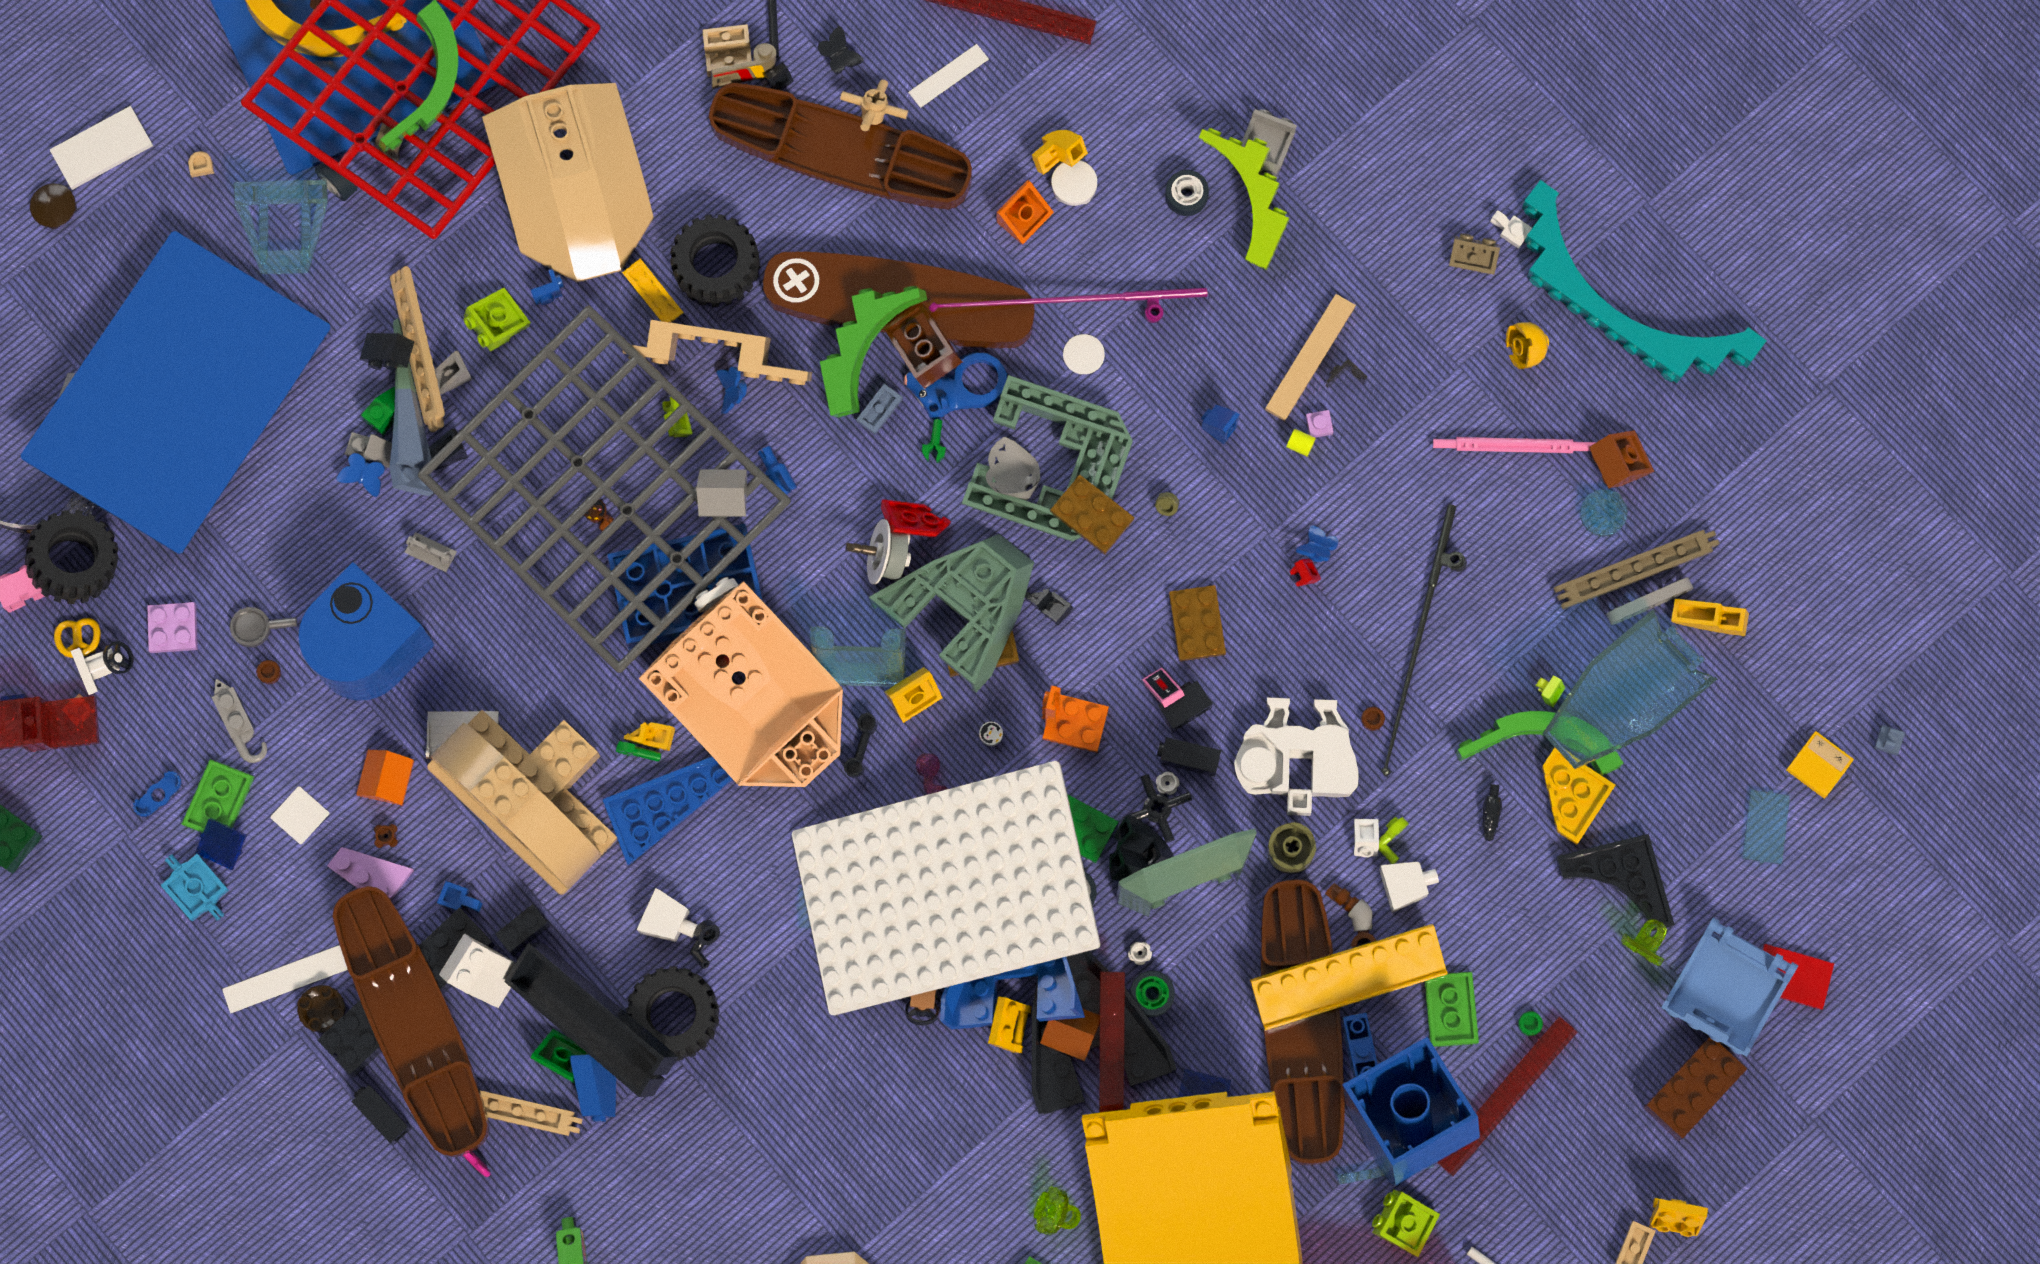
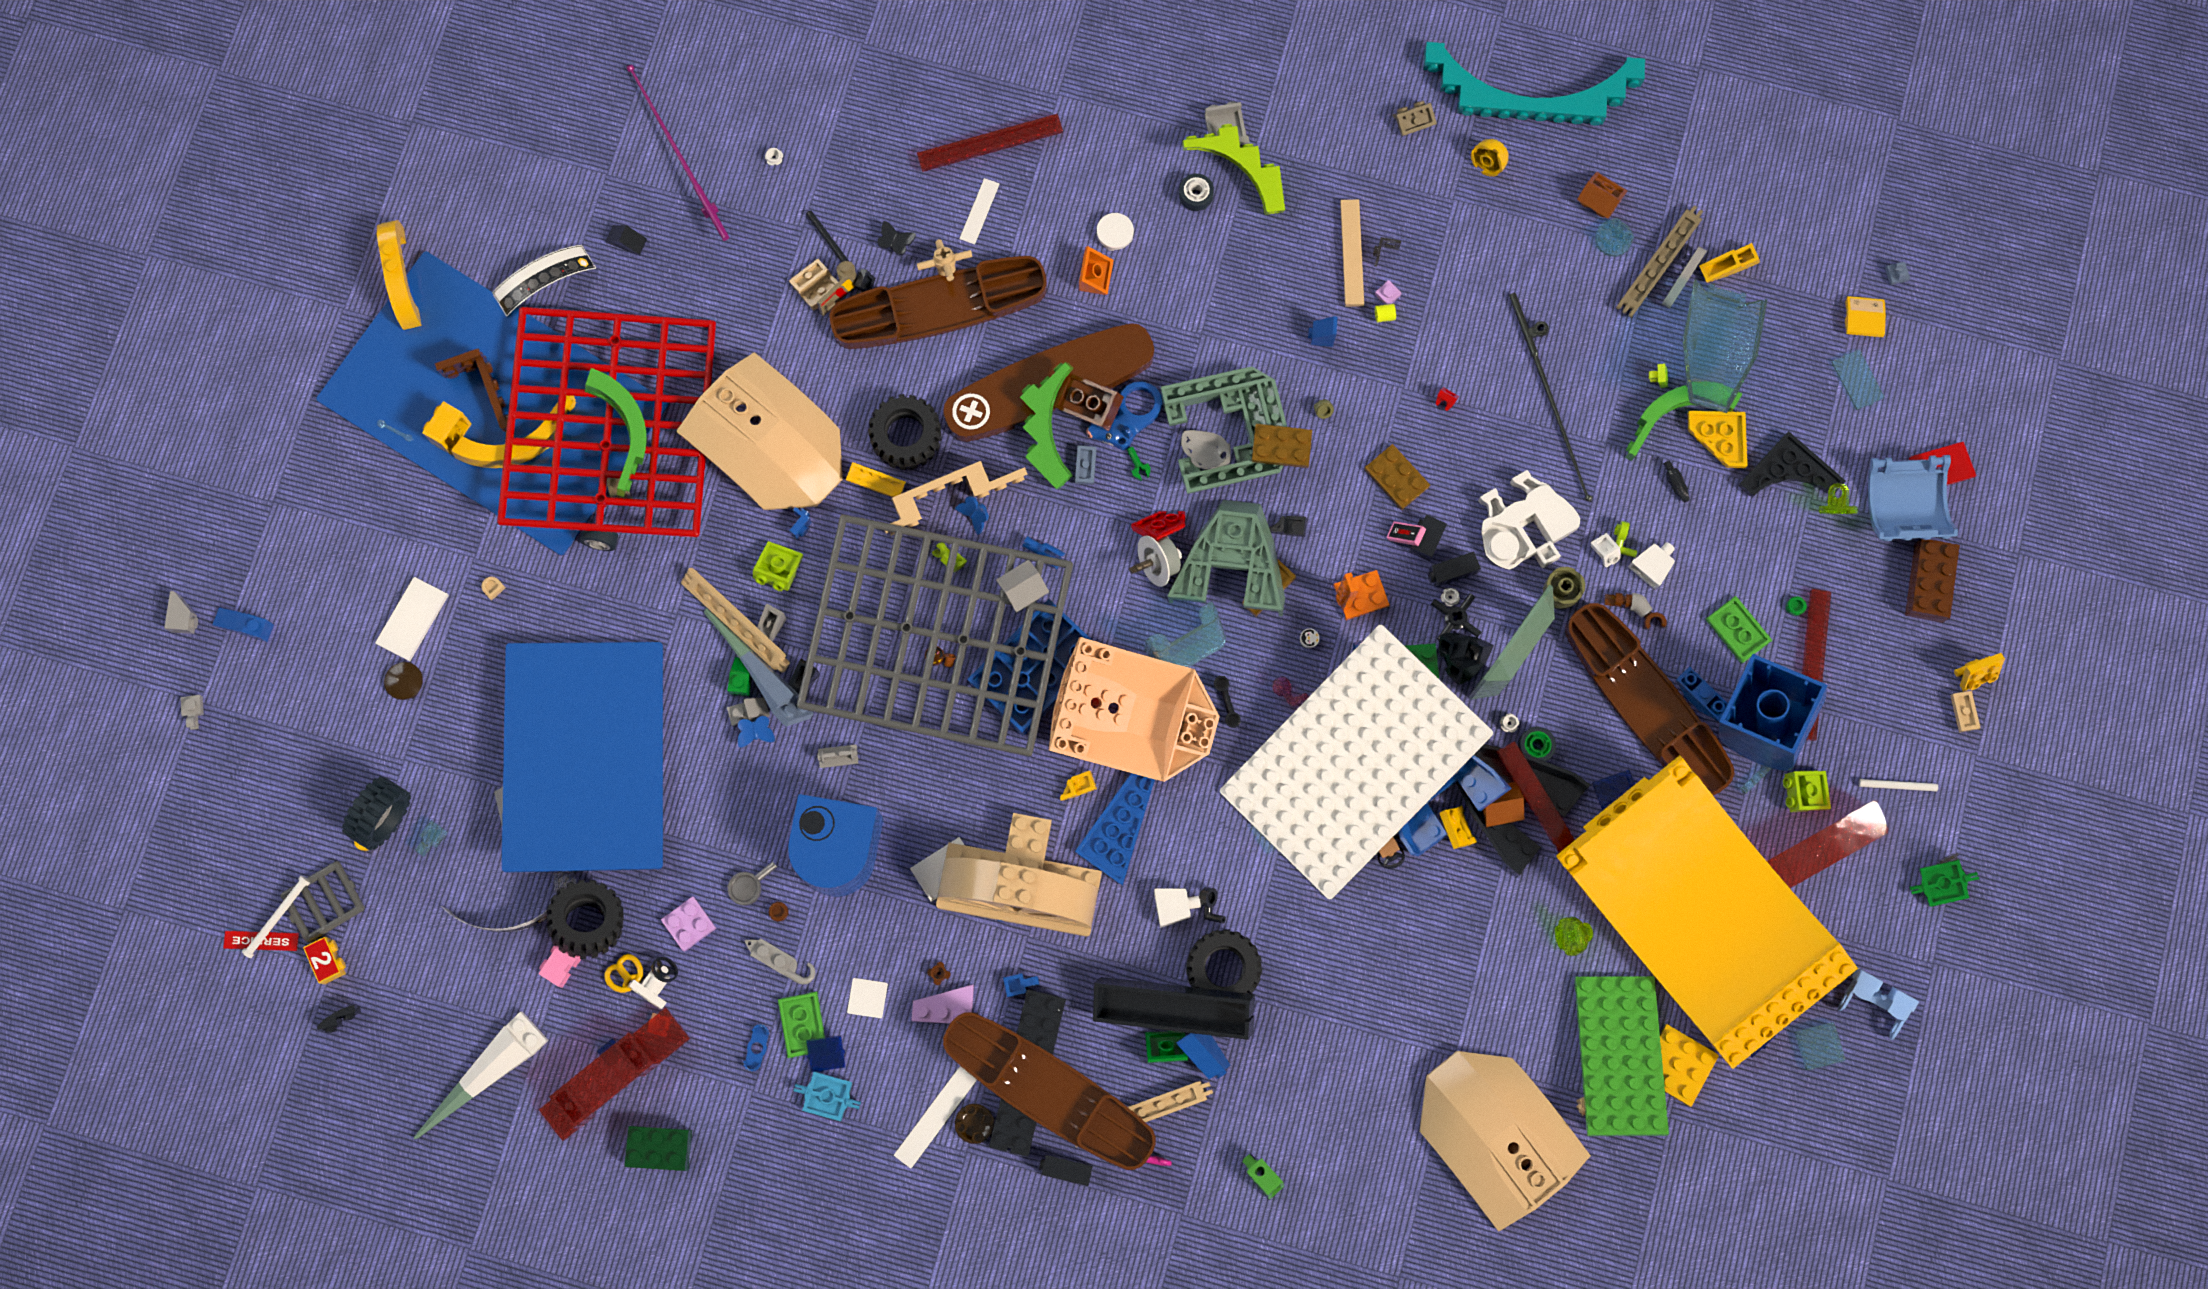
camera: 35 degrees left, 0 degrees up
(282, 192) = (567, 569): clear light blue windscreen -> none
(385, 776) = (910, 932): orange slope -> none
(386, 350) = (715, 634): black brick -> none
(478, 971) = (1070, 1025): white slope -> none
(522, 930) = (1080, 977): black brick -> none
(630, 749) = (1071, 804): green bar -> none
(709, 598) = (1059, 666): white plate -> none
(913, 694) = (1239, 643): yellow slope -> none
(1059, 146) = (1091, 211): yellow brick -> none
(1083, 354) = (1198, 343): white sticker -> none
(1151, 297) = (1219, 276): magenta piece -> none
(1318, 545) = (1444, 374): blue animal -> none
(1348, 976) = (1660, 650): yellow plate -> none
(1372, 718) = (1556, 468): reddish brown tile -> none
(1513, 230) = (1429, 87): white plate -> none
(1513, 445) = (1524, 229): bright pink axle -> none

